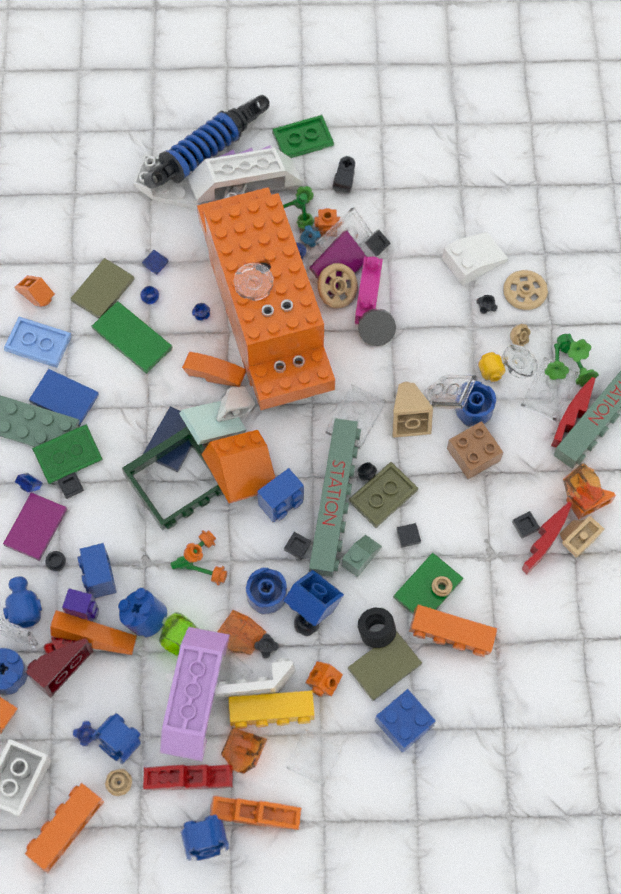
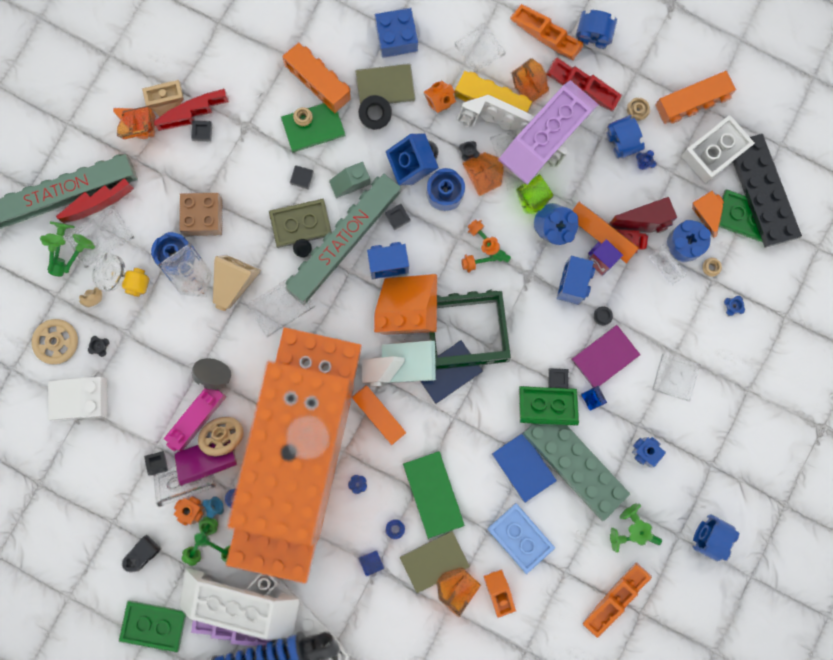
camera: 155 degrees left, 15 degrees up
(22, 605) = (650, 288): blue piece -> none
(72, 273) = (456, 589): none -> clear orange slope

